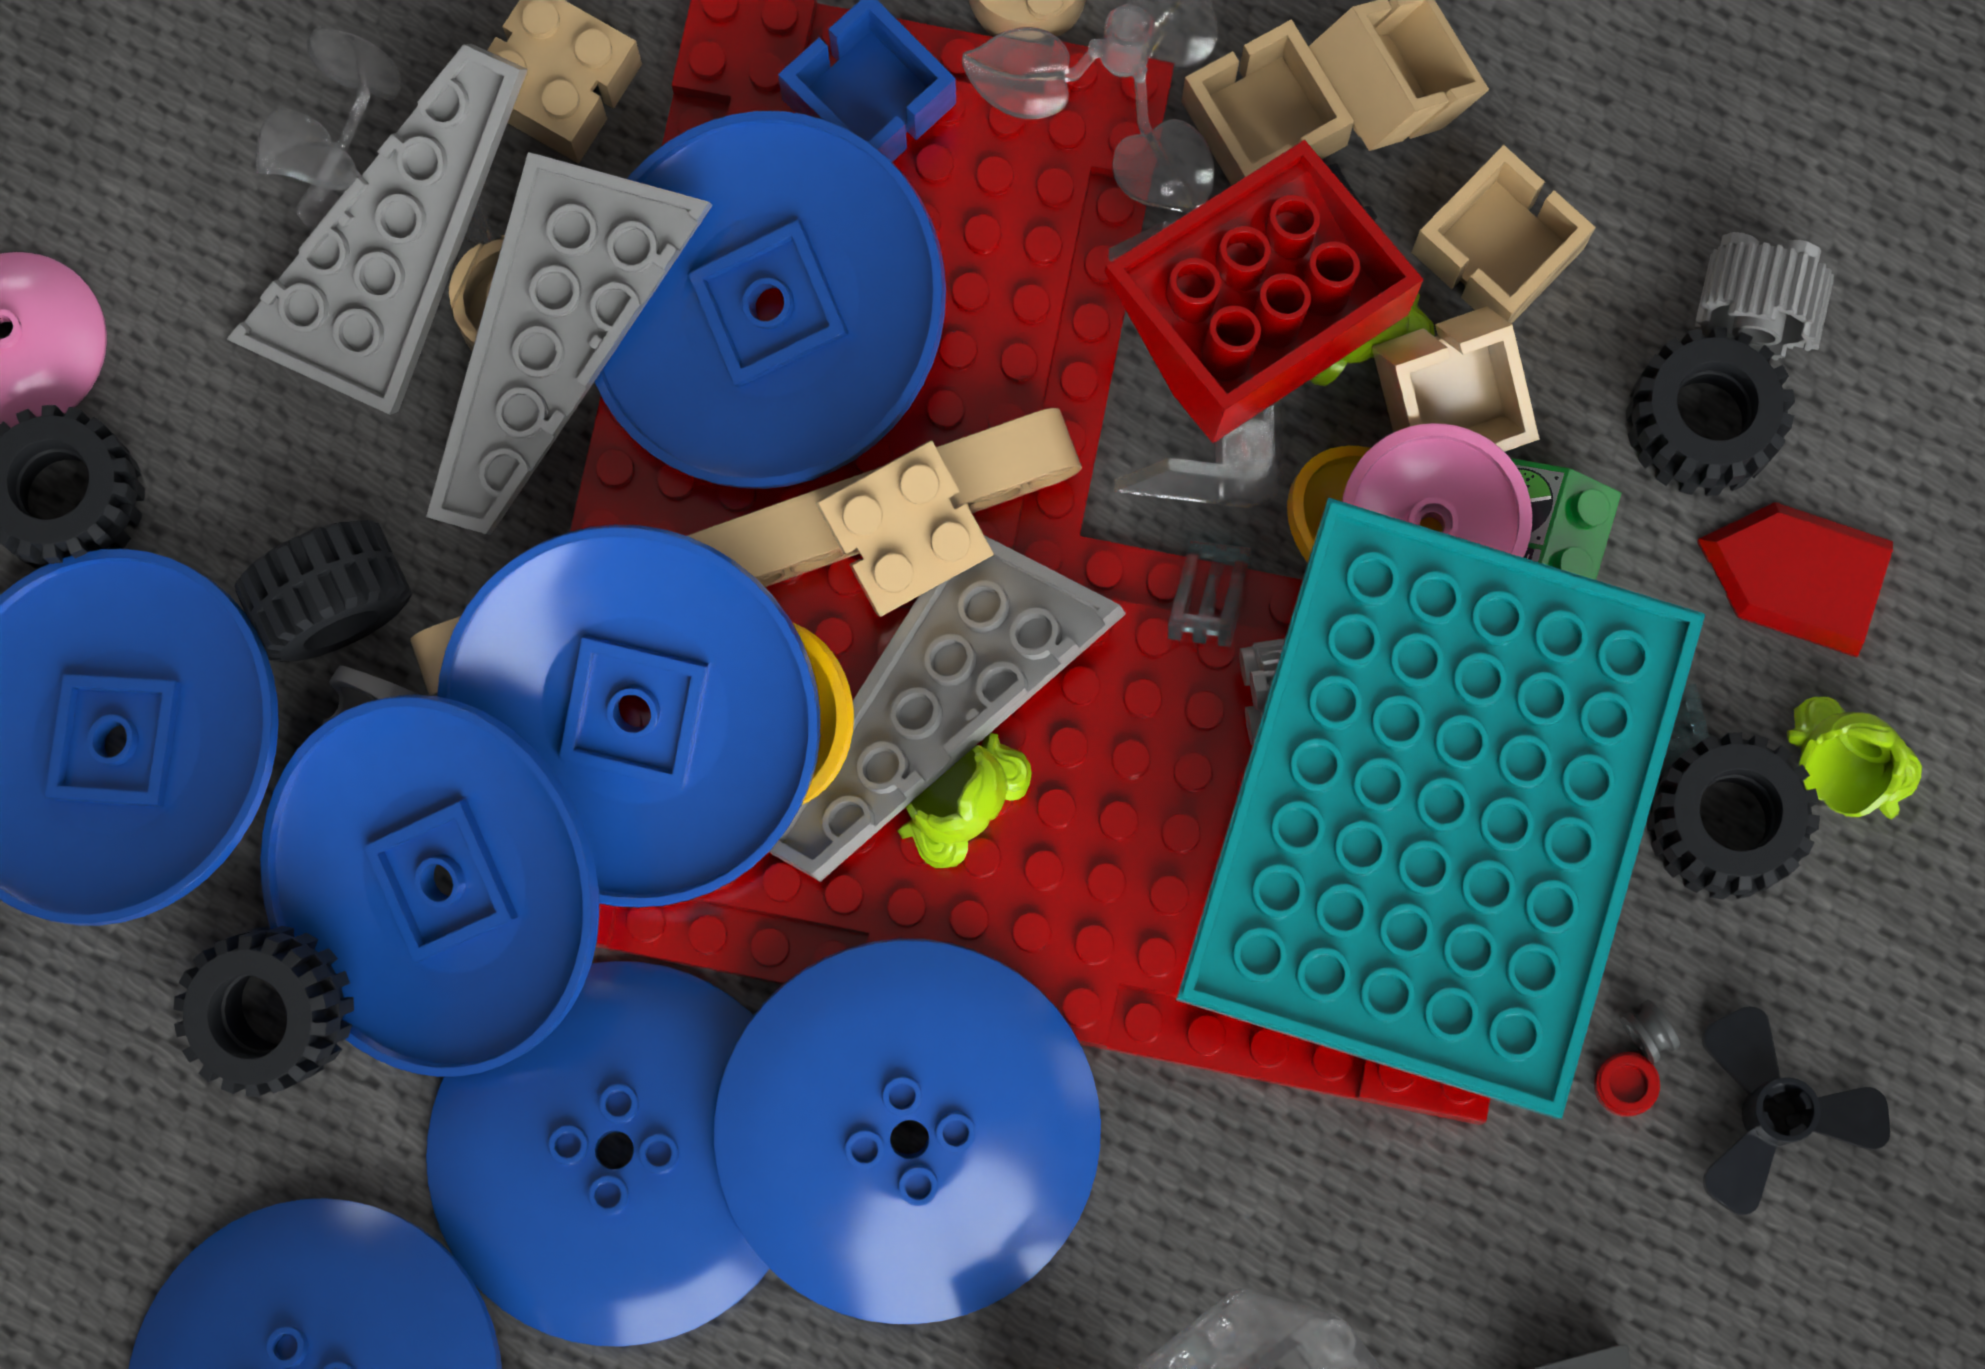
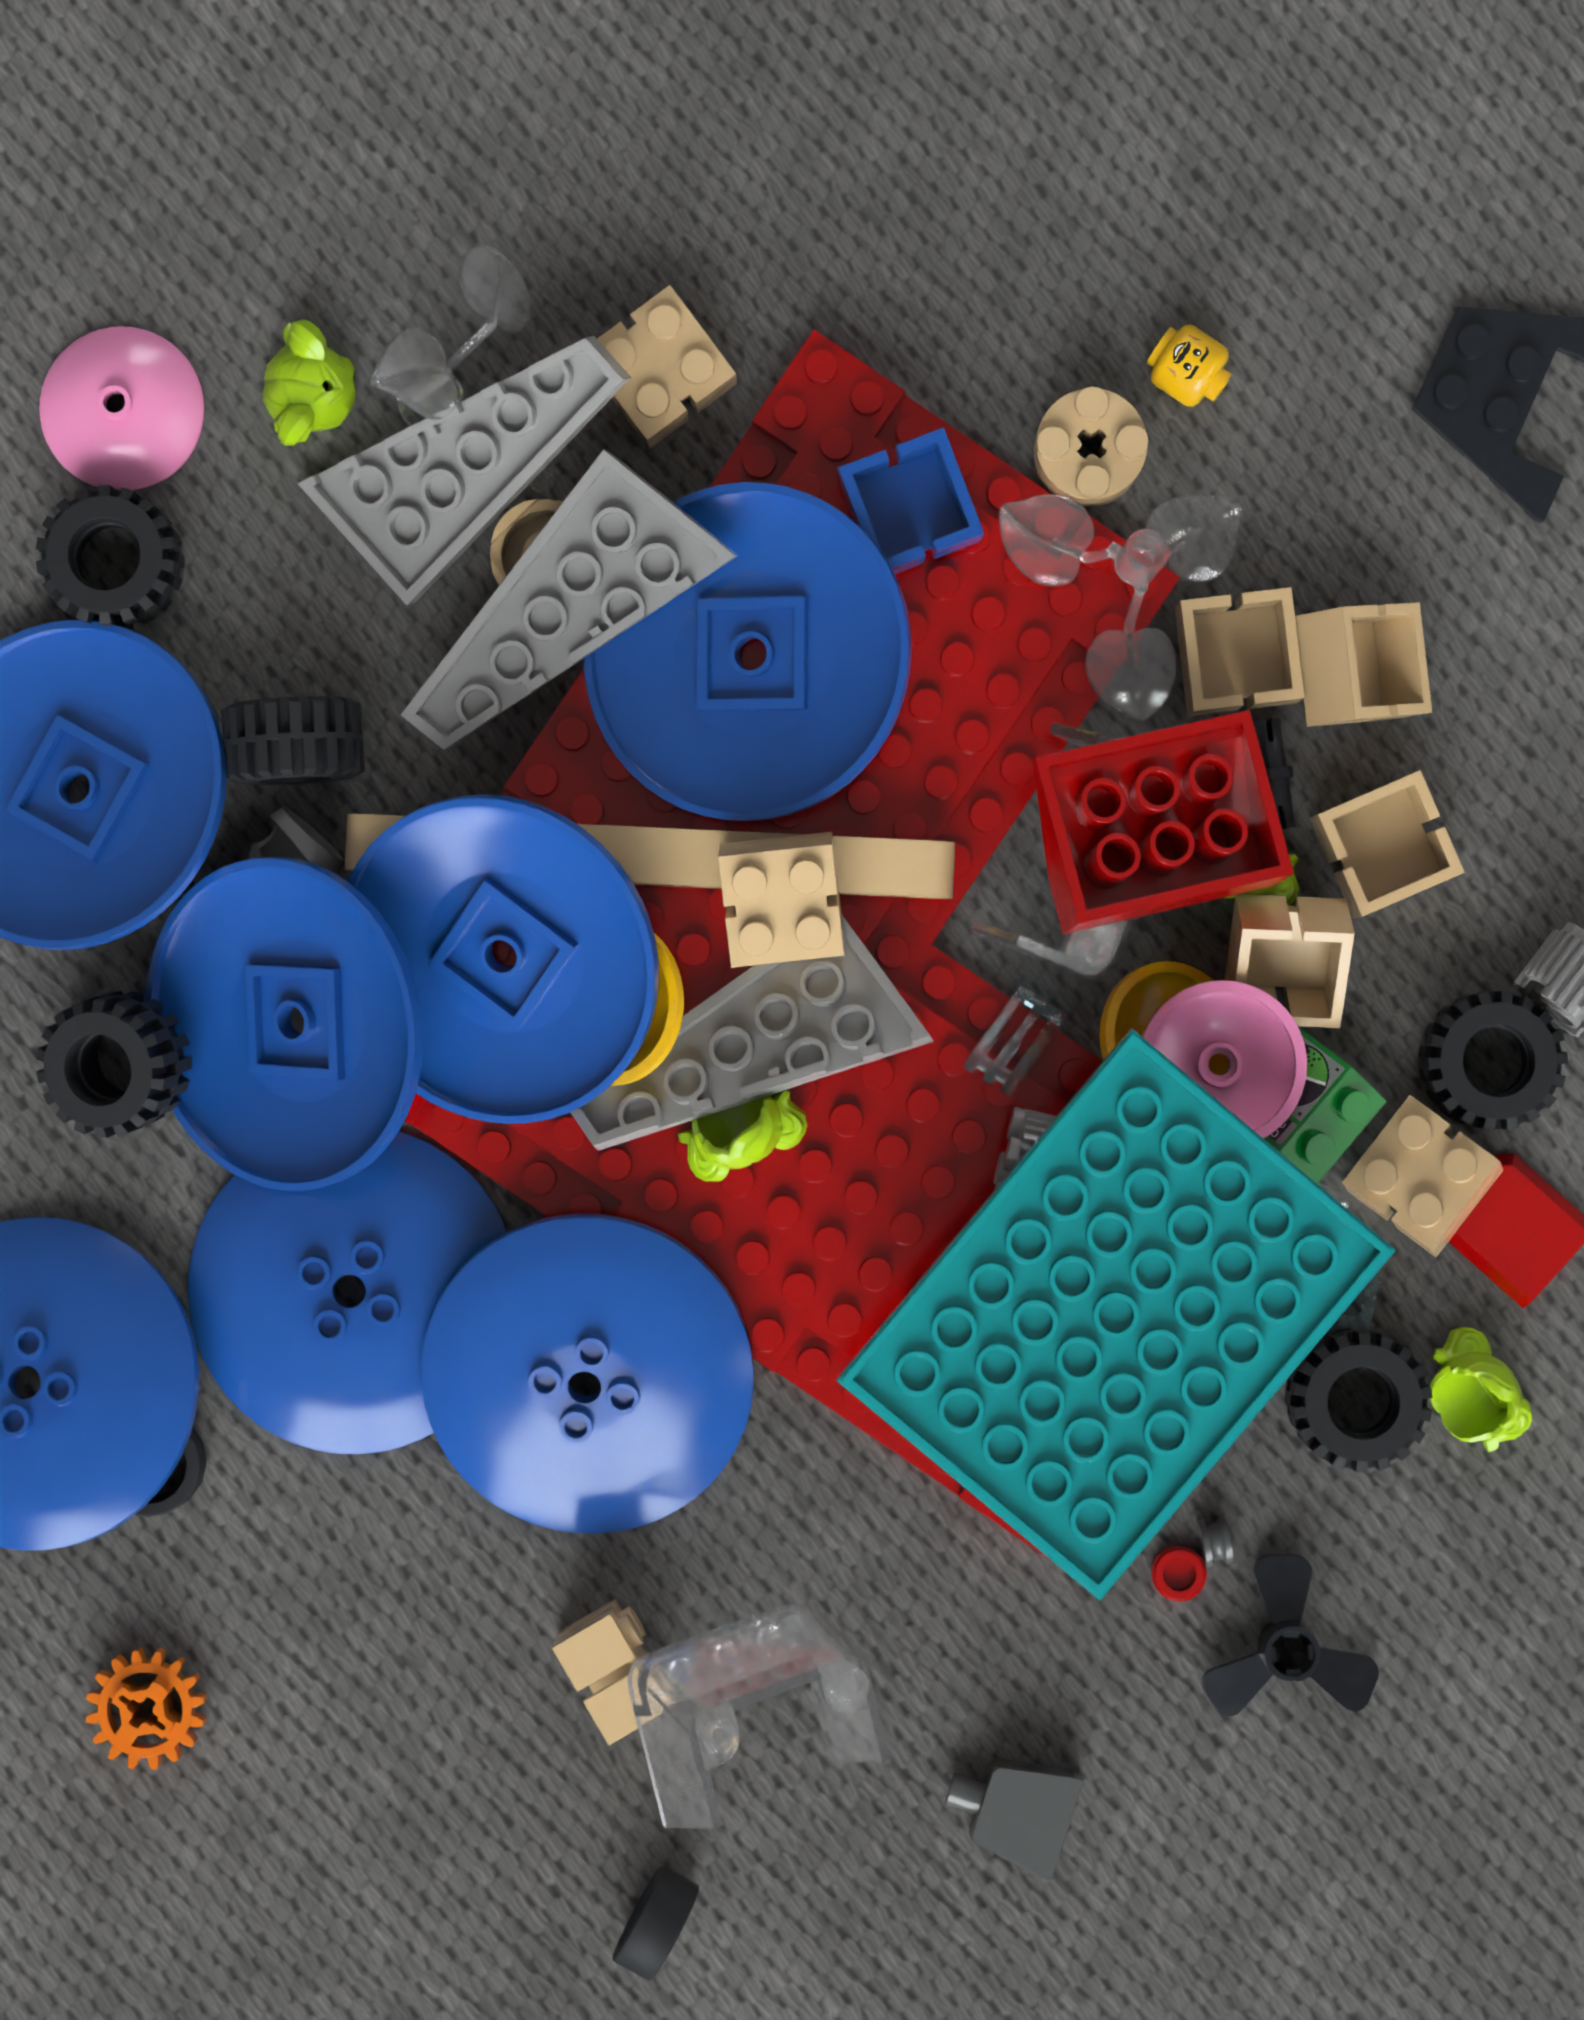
camera: 20 degrees right, 10 degrees up
(187, 244) = (295, 384): none -> lime hair
(1697, 550) = (1423, 1175): none -> tan piece

